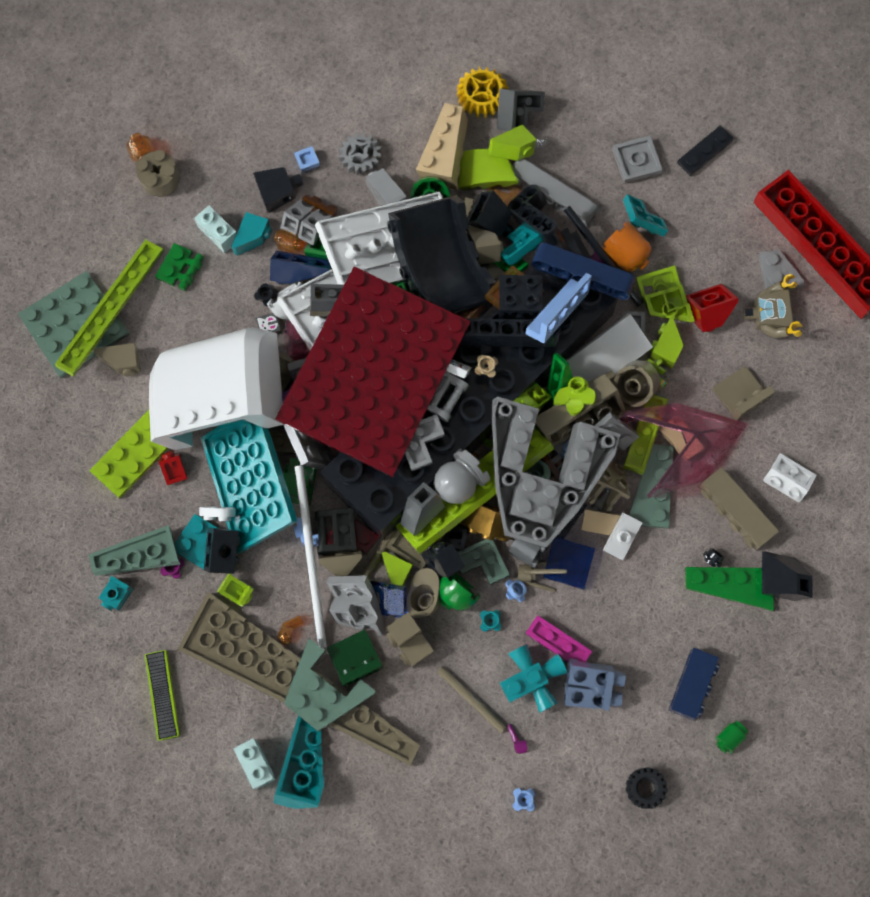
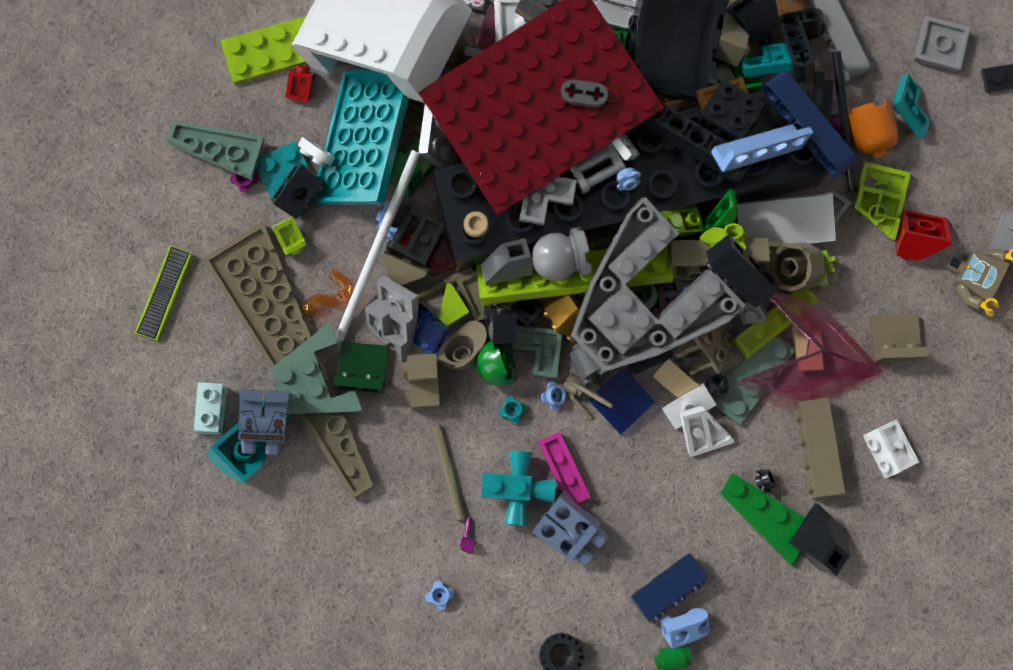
camera: 25 degrees right, 5 degrees up
(122, 593) = (182, 176): teal brick -> none
(301, 603) = (344, 284): none -> clear orange arm
(305, 753) = (262, 427): none -> sand blue hips
(380, 493) = (476, 224): none -> tan tile
(402, 341) = (584, 87): none -> dark grey beam
(474, 391) = (628, 179): none -> light blue plate
(486, 360) = (655, 154): tan plate -> none
(602, 410) = (741, 271): none -> black brick
(634, 507) = (717, 385): none -> black plate
(645, 549) = (703, 431): none -> white wing
(668, 345) = (853, 248): lime slope -> none
(726, 707) = (685, 628): none -> light blue leg

